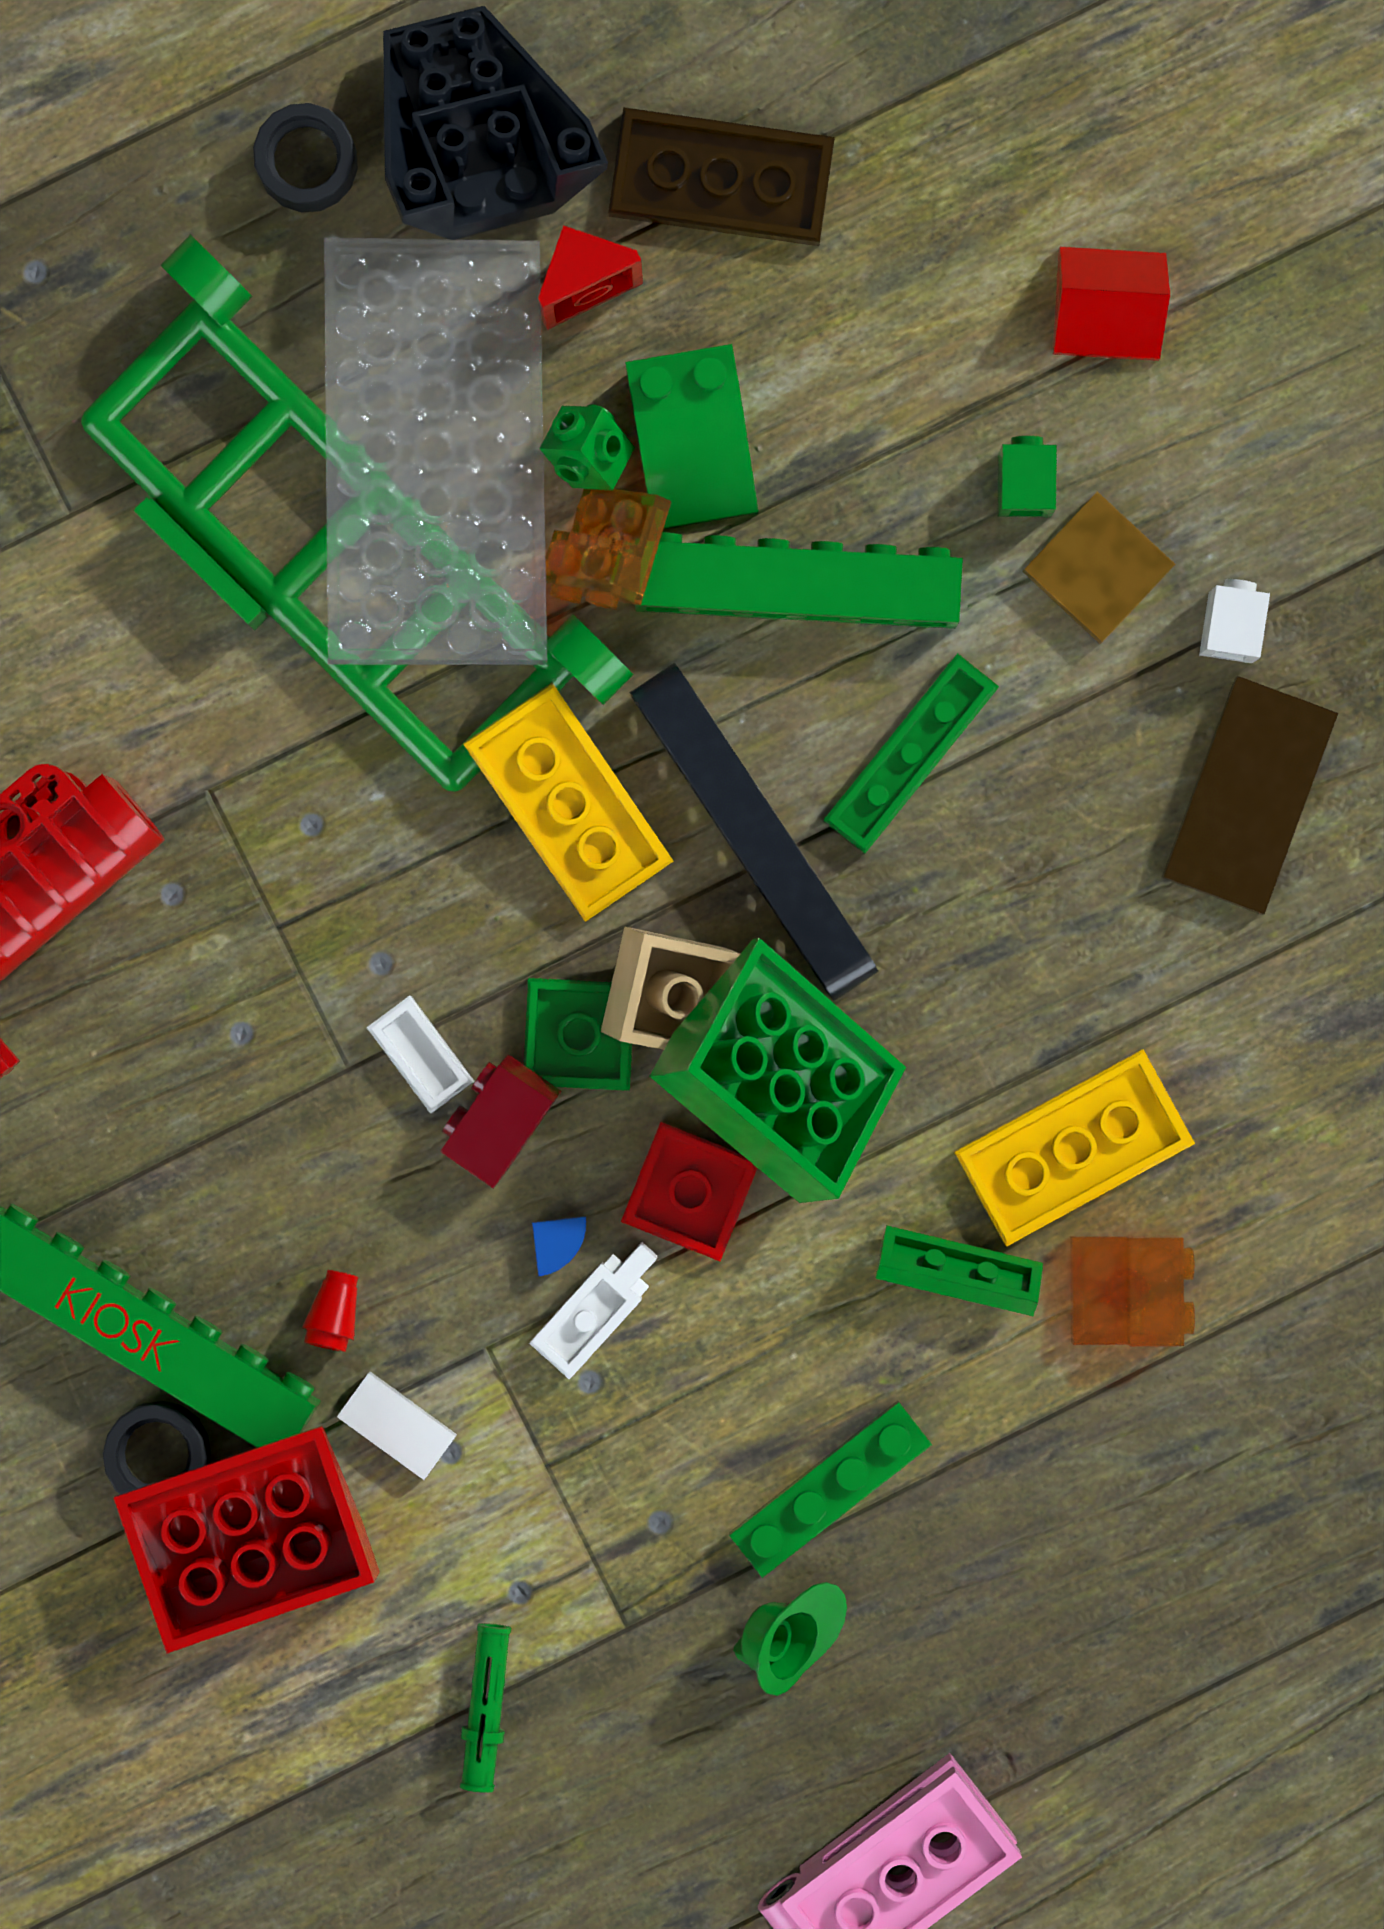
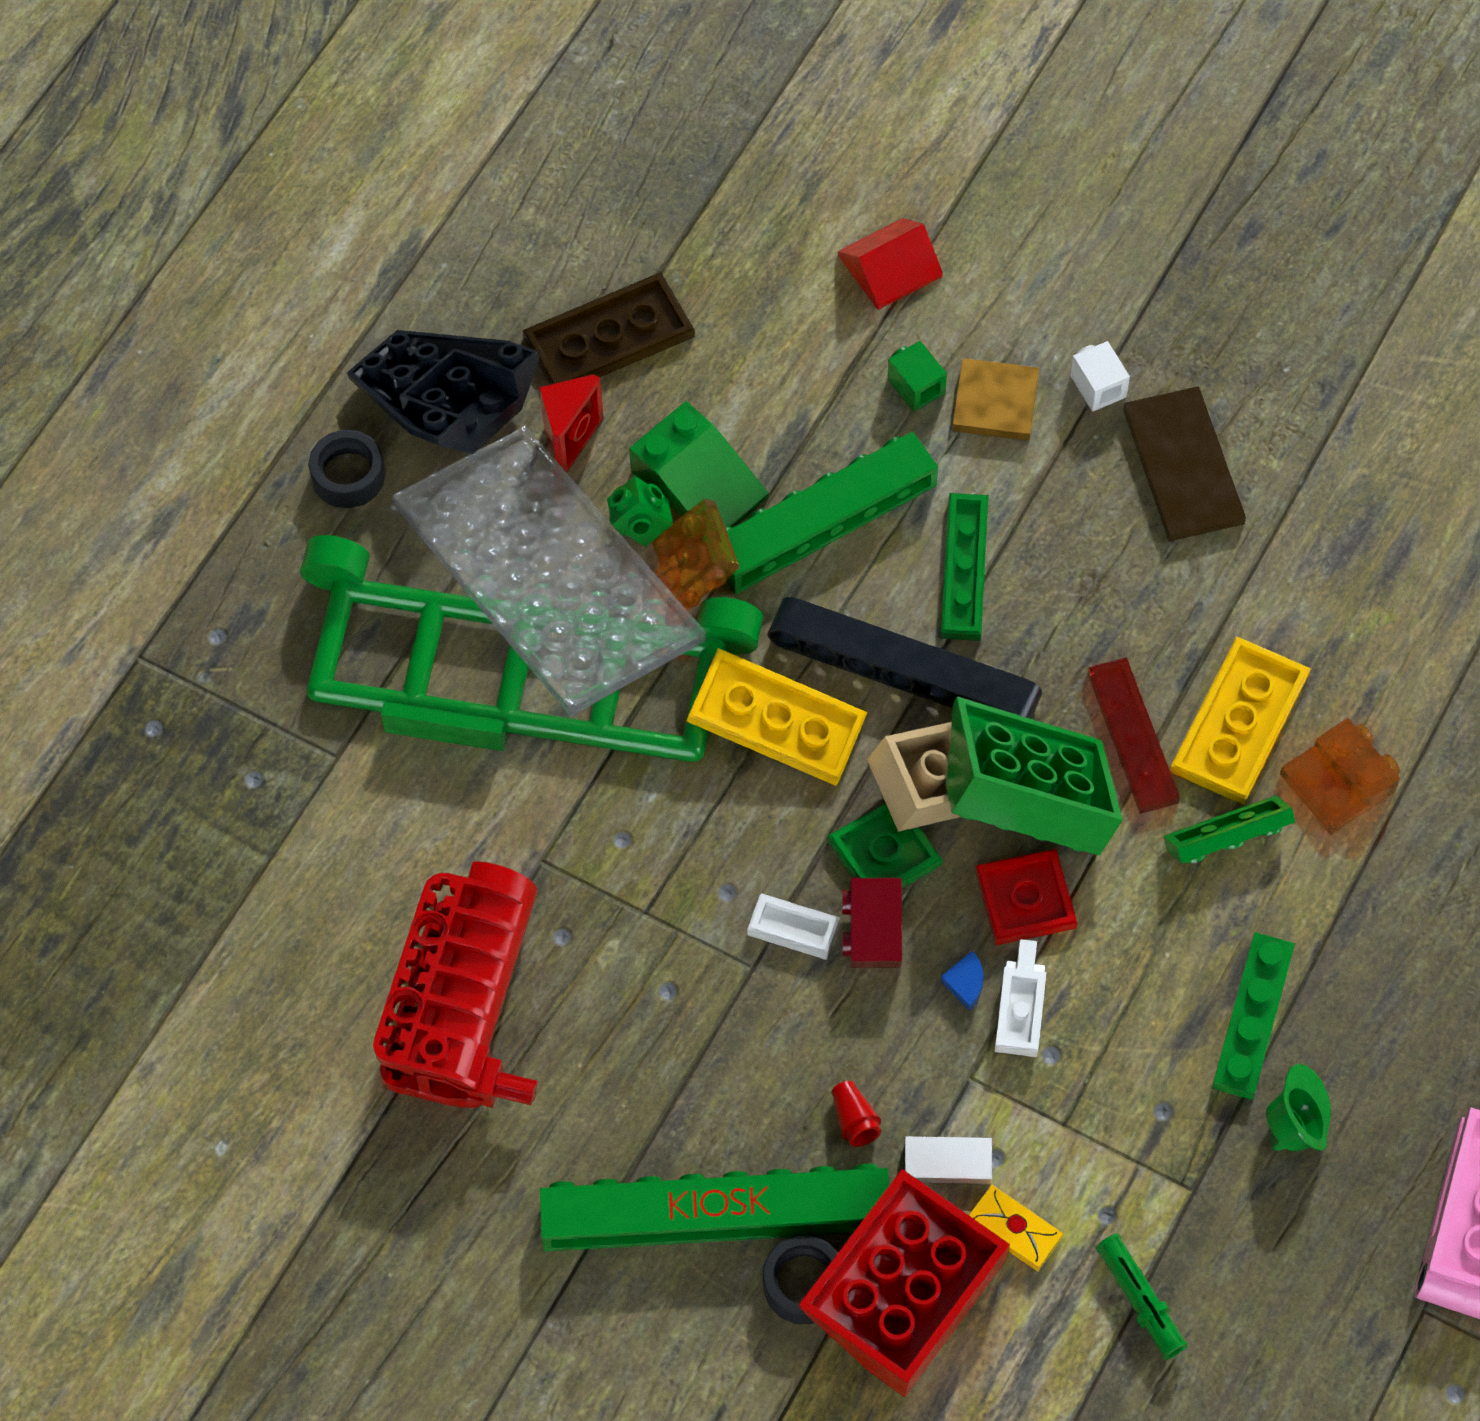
camera: 35 degrees left, 25 degrees down
(412, 1544) = (1028, 1234): none -> yellow tile
(944, 1084) = (1133, 735): none -> clear red tile

